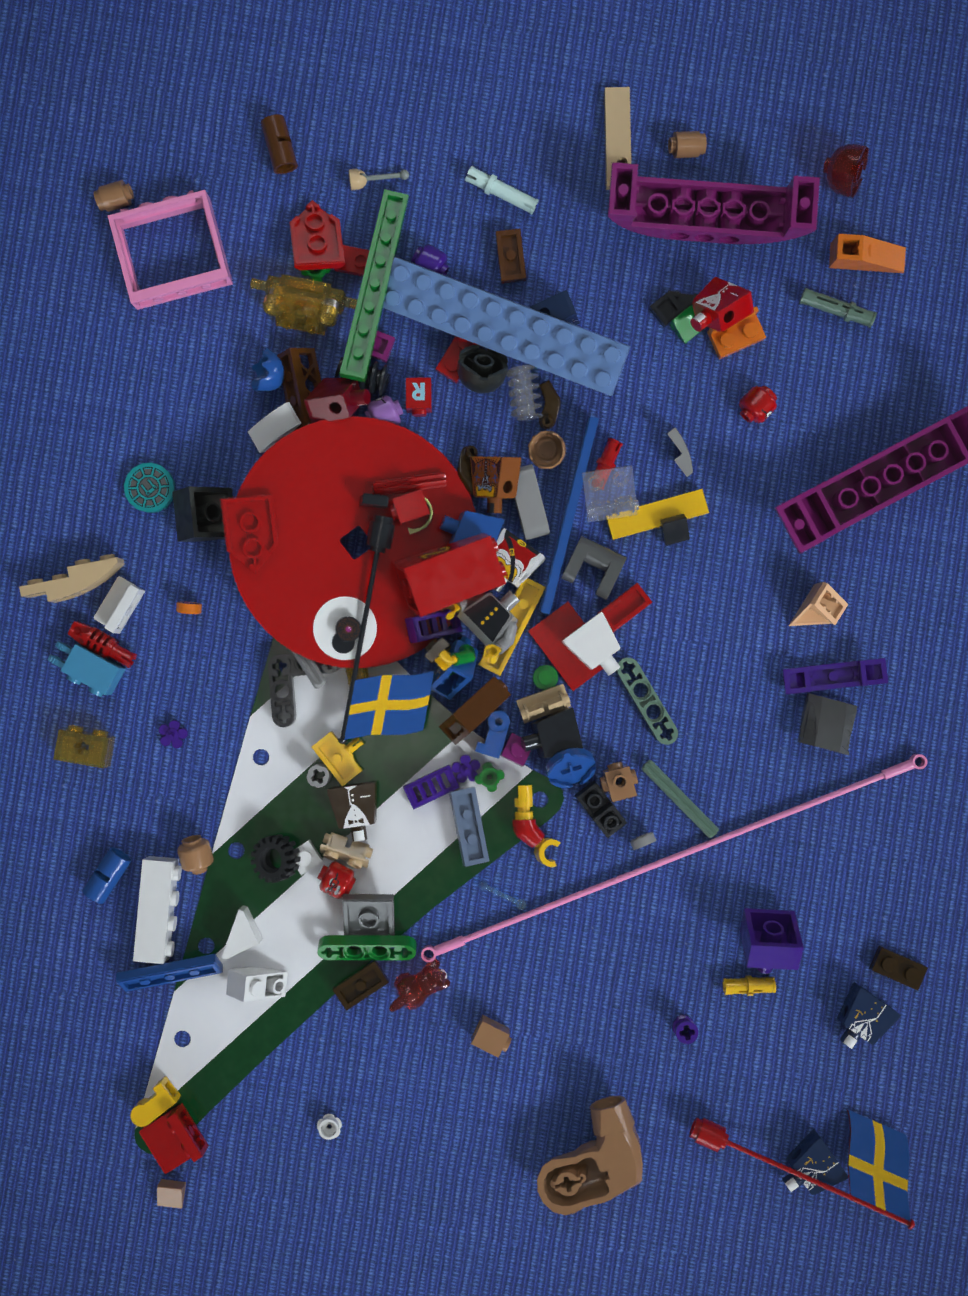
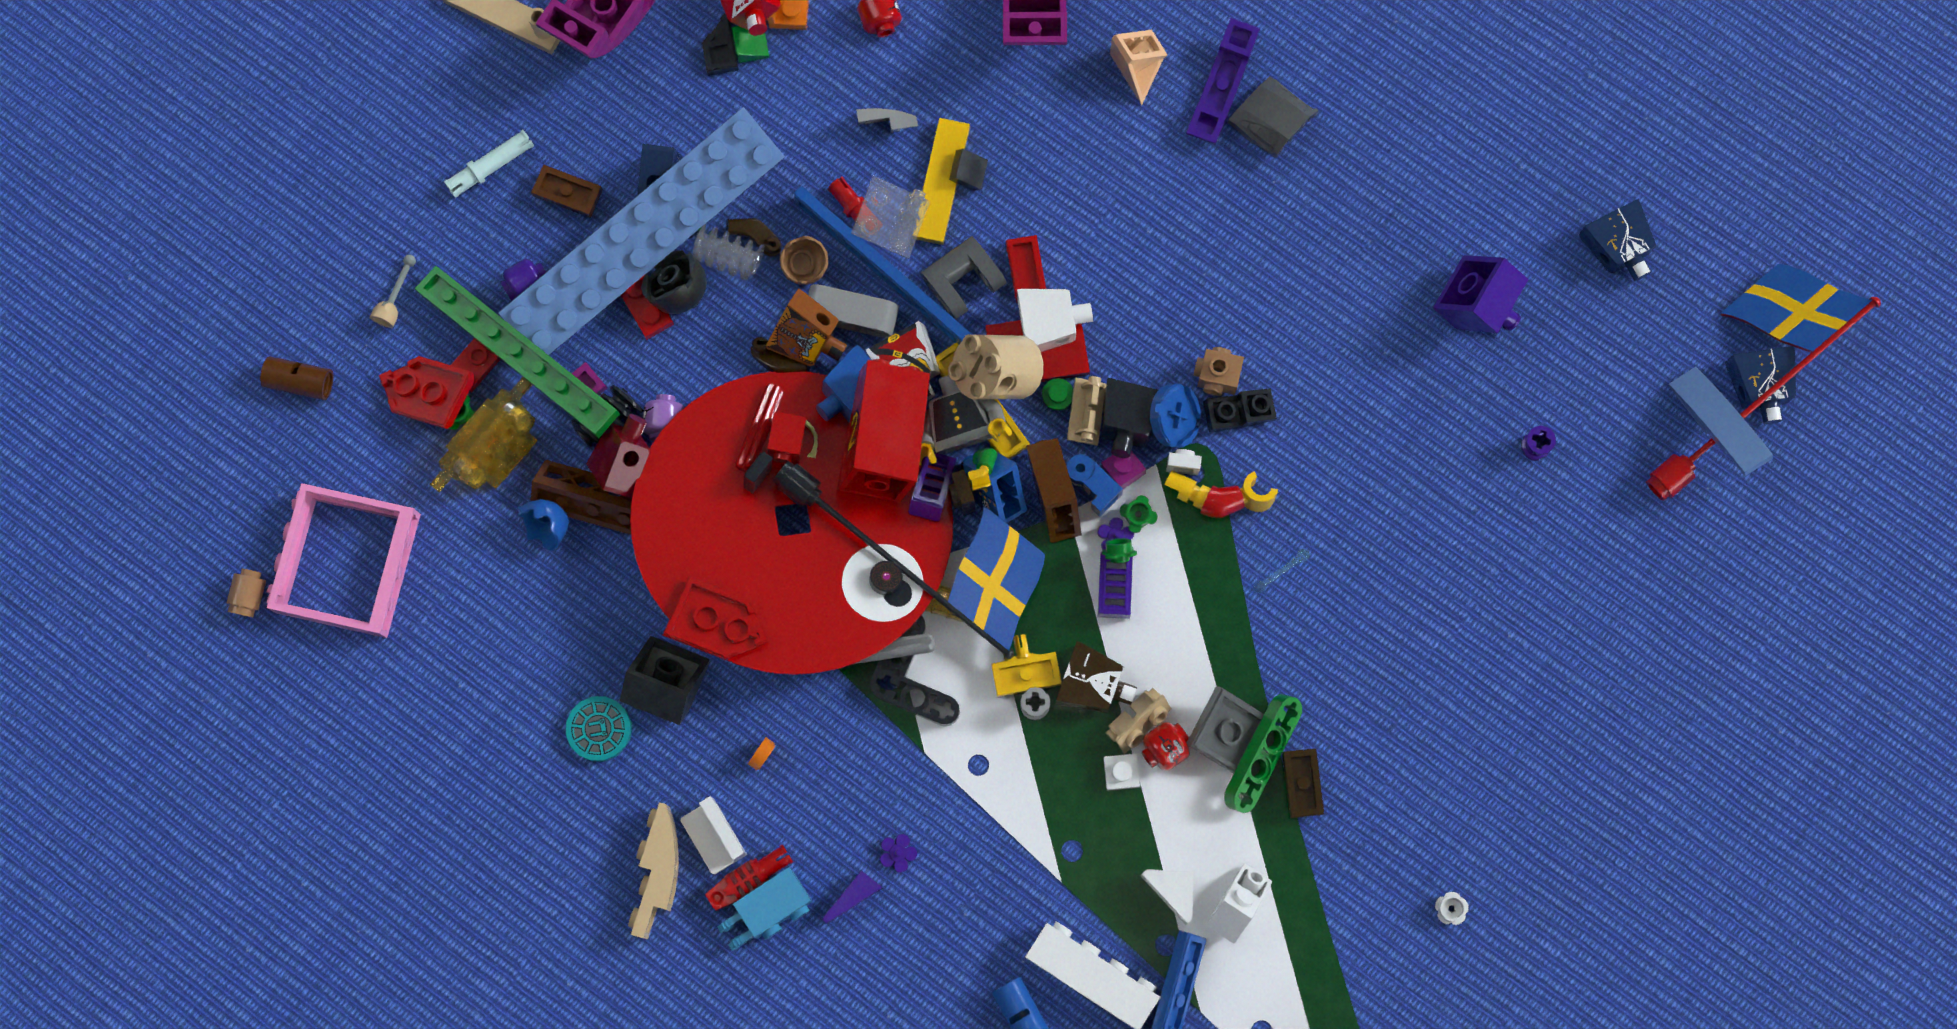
camera: 55 degrees left, 10 degrees down
(69, 747) = (855, 980): clear yellow brick -> none
(134, 723) = (857, 892): none -> dark purple piece
(195, 854) = (1051, 896): medium nougat head -> none
(263, 861) = (1099, 821): black tyre -> none
(274, 426) = (610, 547): white slope -> none
(416, 988) = (1339, 721): clear red animal -> none
(419, 396) = (665, 369): red brick -> none
(454, 778) = (1119, 550): none -> green plate
(469, 826) = (1182, 565): sand blue plate -> none
(491, 1036) = (1438, 664): medium nougat brick -> none
(535, 628) = (997, 367): none -> tan cylinder
(542, 790) = (1184, 462): none -> white plate
(597, 1168) = (1649, 616): medium nougat piece -> none
(643, 703) = (1143, 293): sand green beam -> none
(643, 840) = (1299, 380): light grey tile -> none
(680, 798) = (1273, 317): sand green axle -> none
(749, 985) = (1524, 348): yellow pin -> none
(766, 1152) = (1721, 421): none -> medium blue slope
(885, 774) = (1310, 644): bright pink piece -> none
(898, 968) = (1586, 178): dark brown plate -> none

